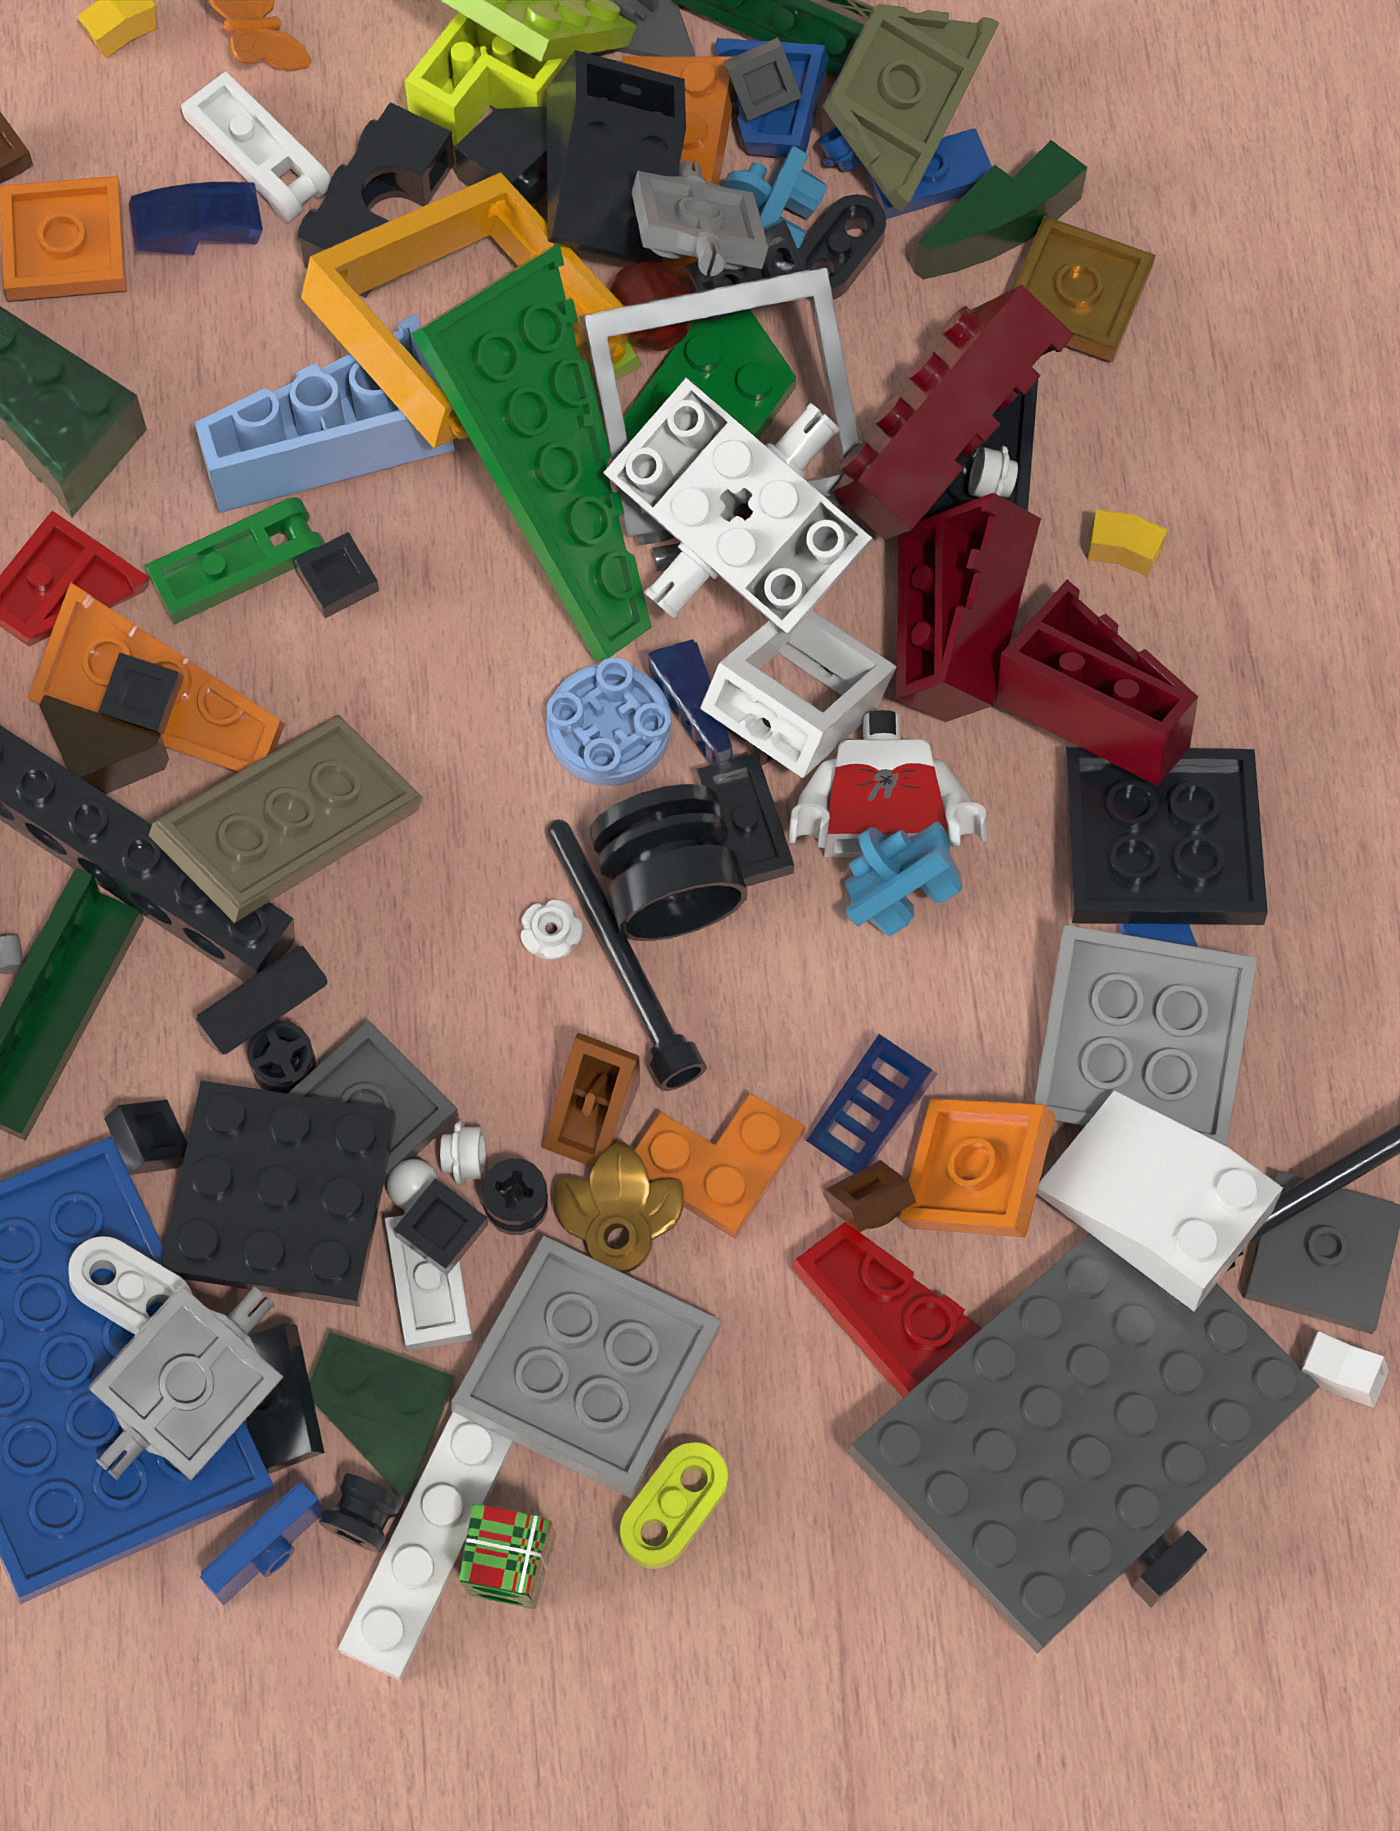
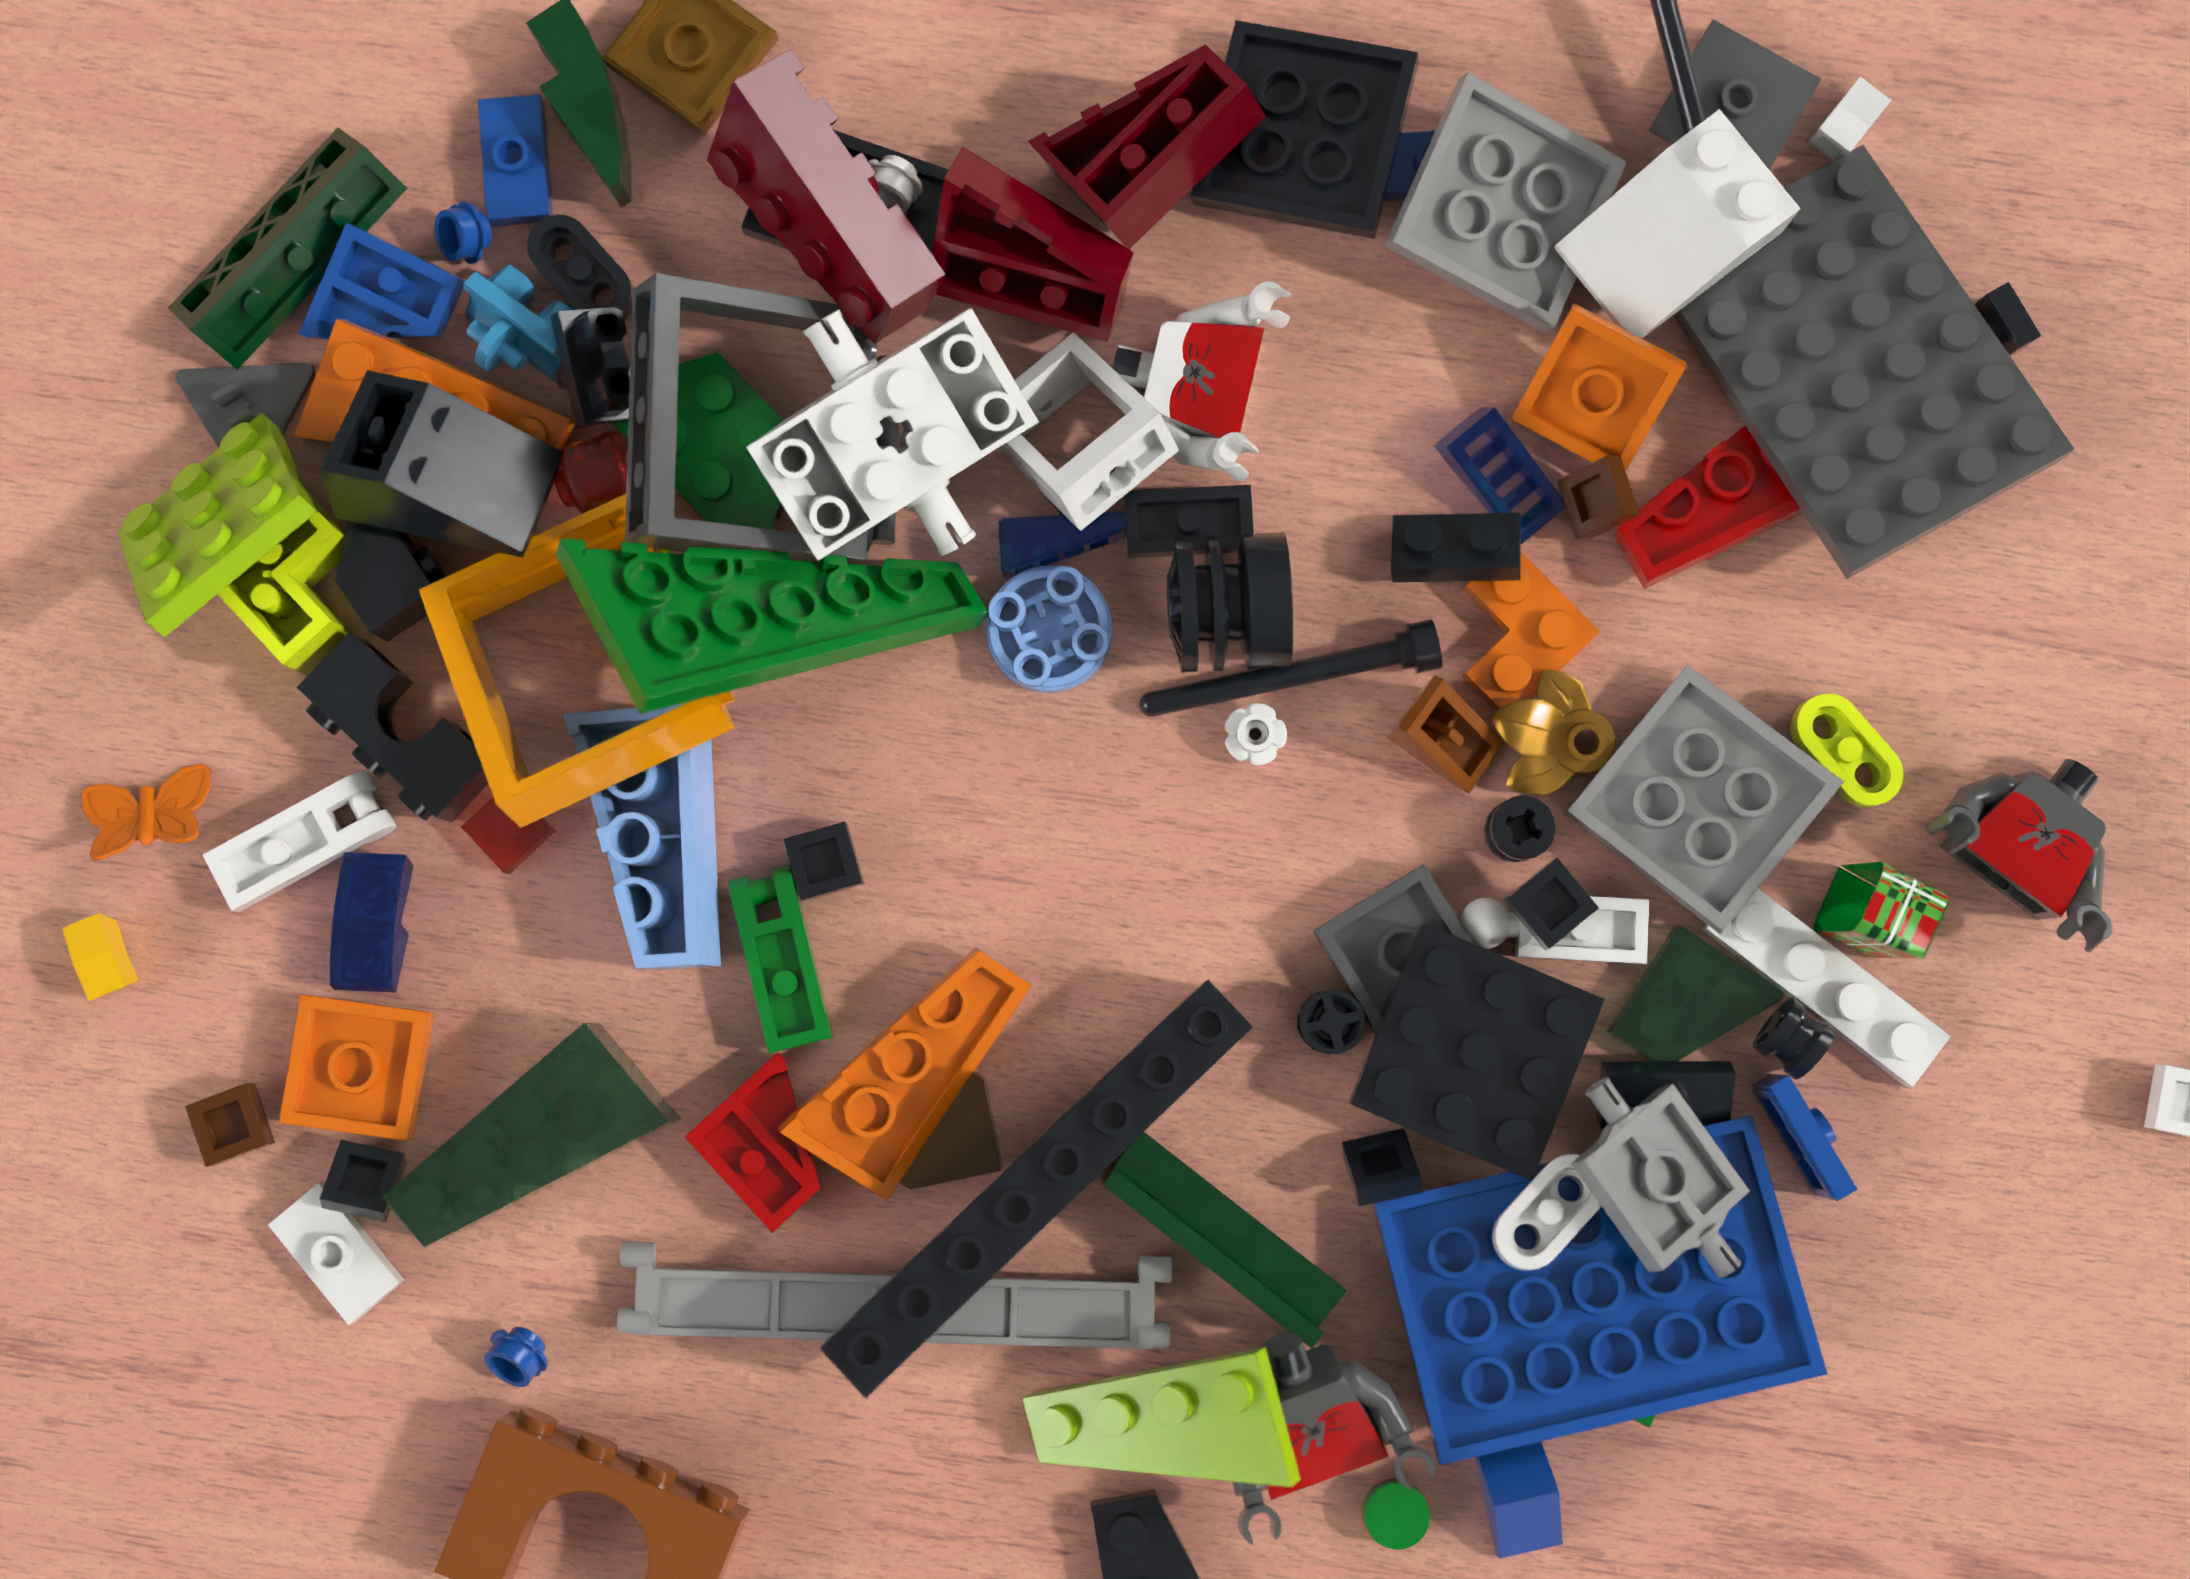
camera: 75 degrees left, 15 degrees up
(141, 693) = (924, 1083): black plate -> none
(260, 1000) = (1278, 1031): black slope -> none
(285, 817) = (1094, 966): dark tan tile -> none
(295, 318) = (503, 839): none -> clear red plate
(464, 1153) = (1464, 868): white plate -> none
(621, 1711) = (2034, 845): none -> torso
(699, 220) = (549, 393): light grey plate -> none
(762, 79) = (376, 293): dark grey tile -> none
(783, 1071) = (1456, 547): none -> black plate
(894, 869) = (1294, 386): dark azure hips -> none
(904, 91) = (430, 153): olive wing -> none
(1126, 540) = (979, 80): yellow piece -> none

